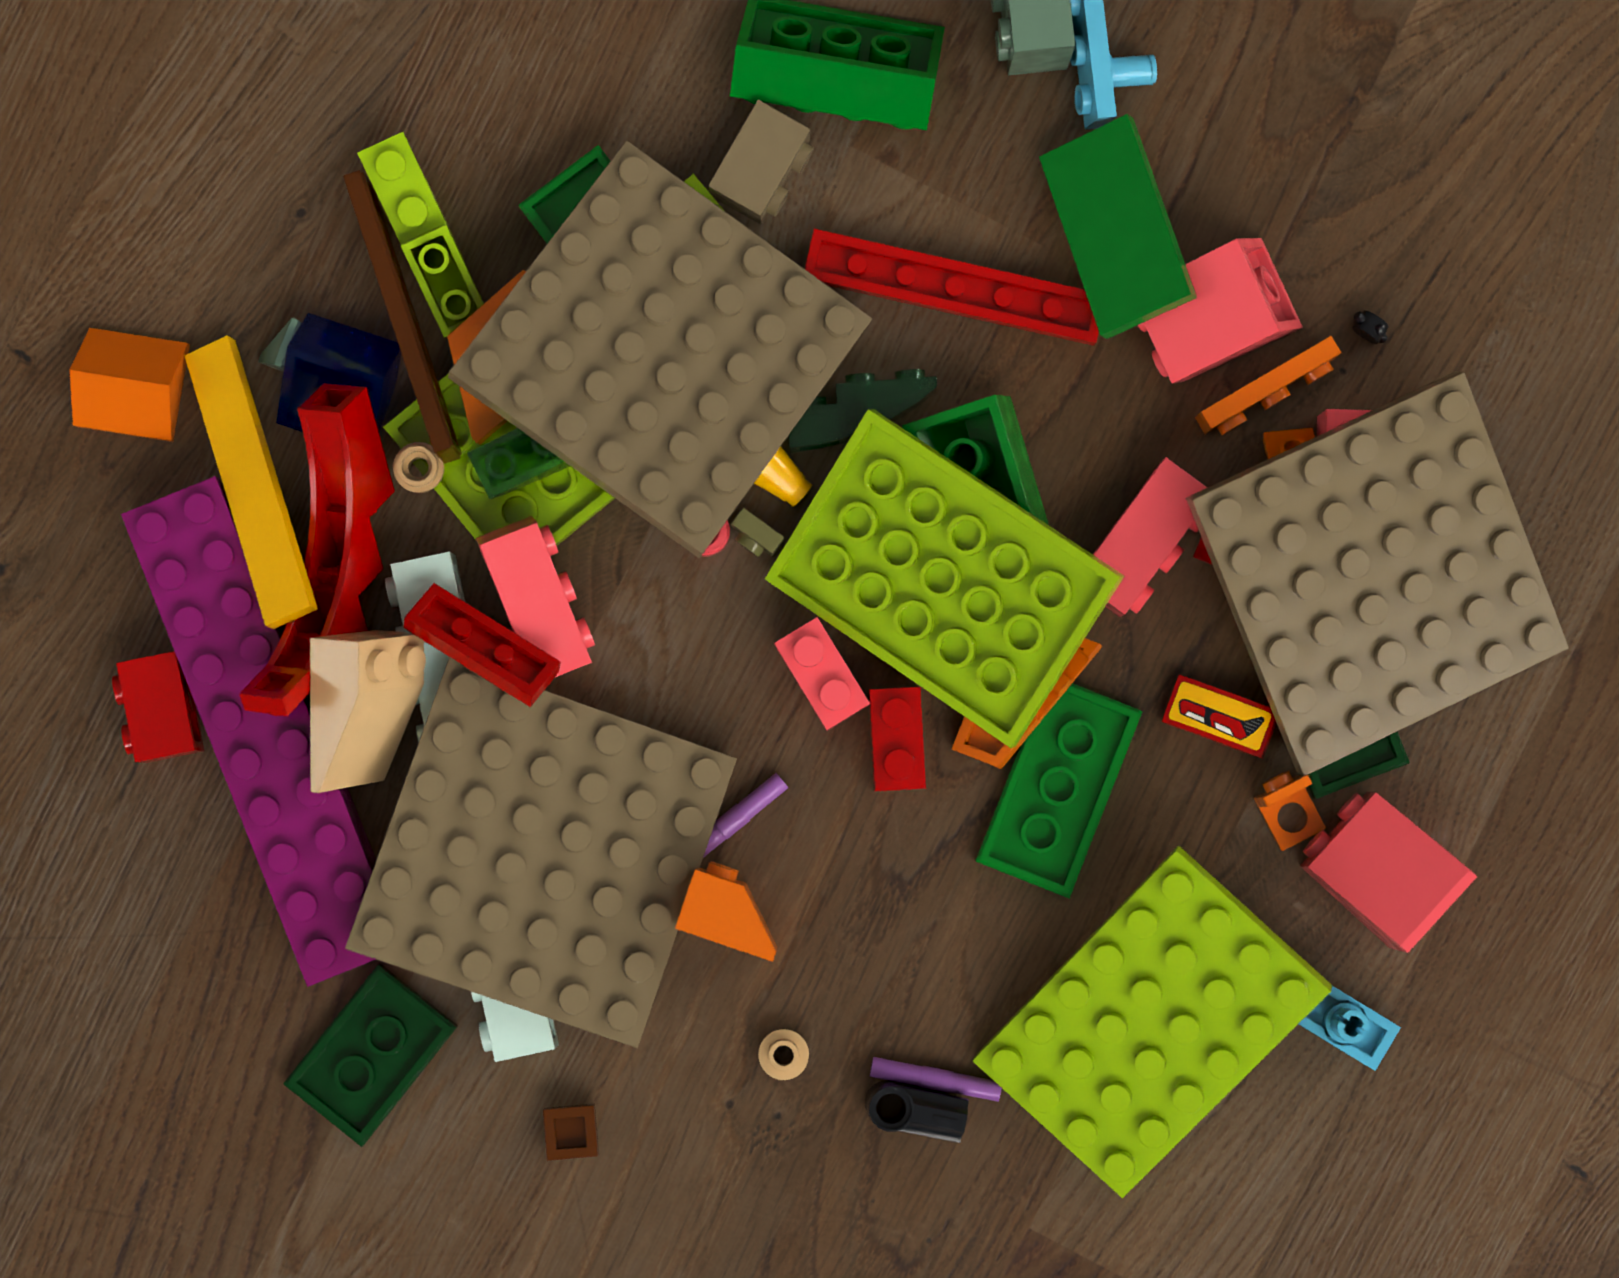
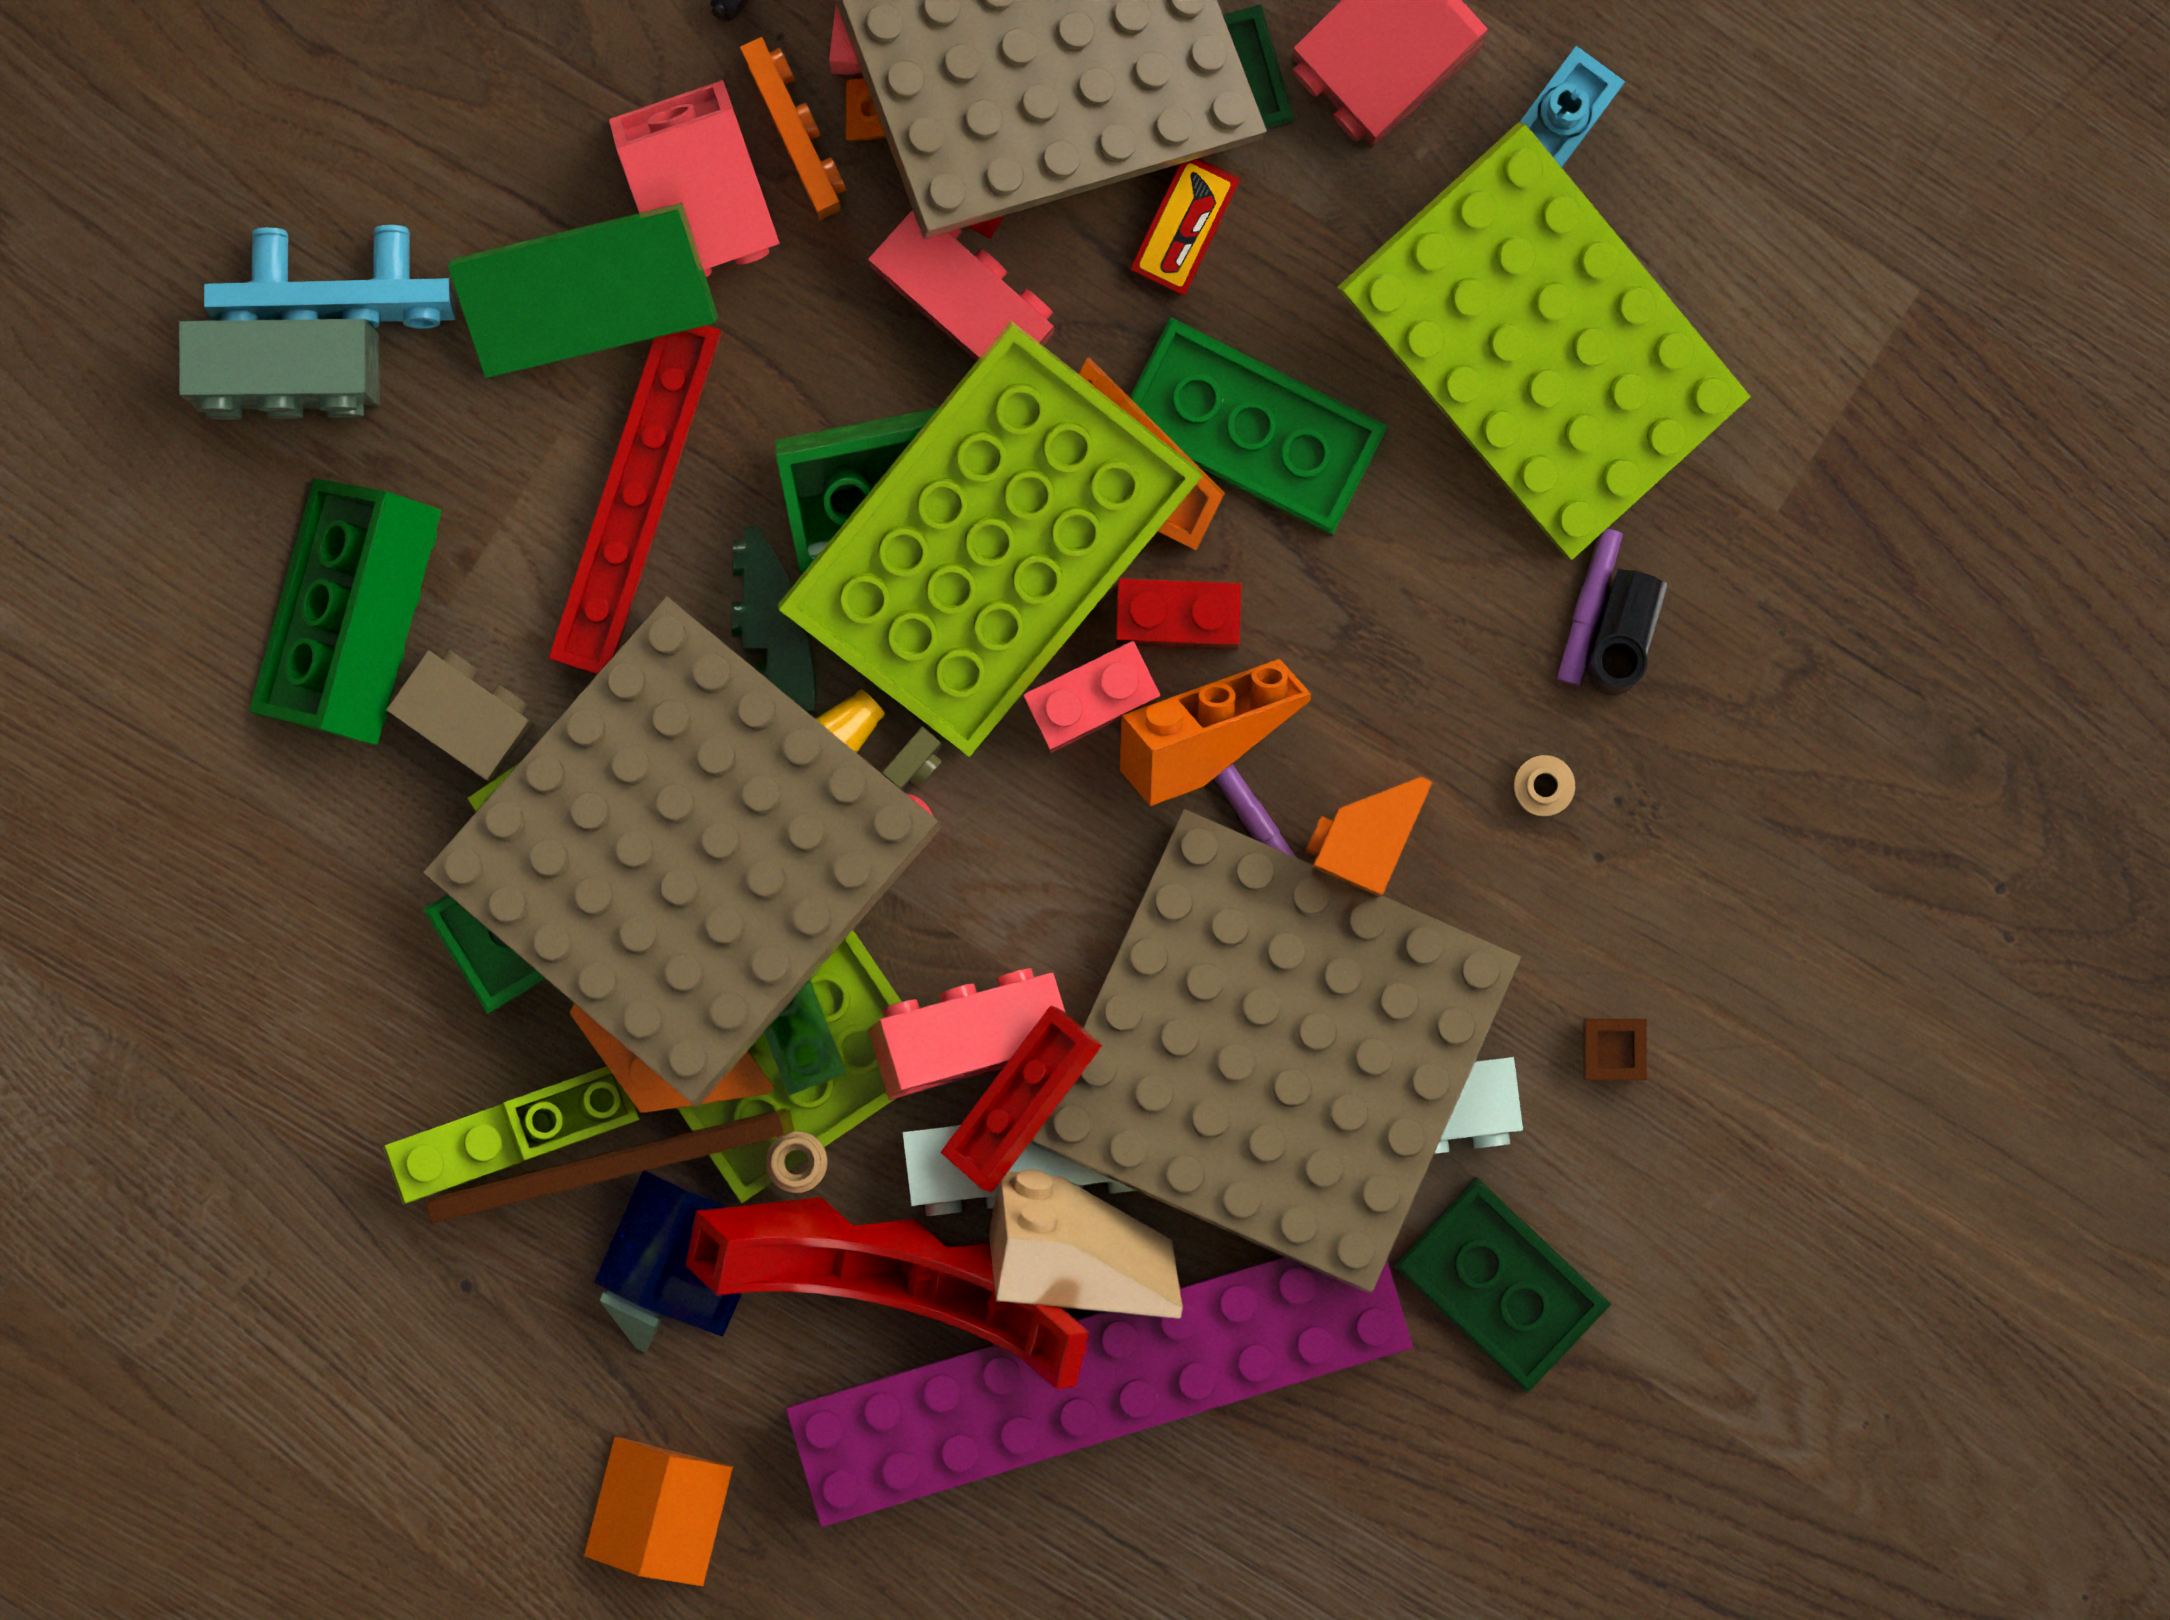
camera: 85 degrees left, 0 degrees up
(157, 709) = (1058, 1506): red brick -> none
(250, 483) = (795, 1367): yellow tile -> none
(803, 770) = (1202, 732): none -> orange slope
(1281, 791) = (1281, 159): orange bracket -> none

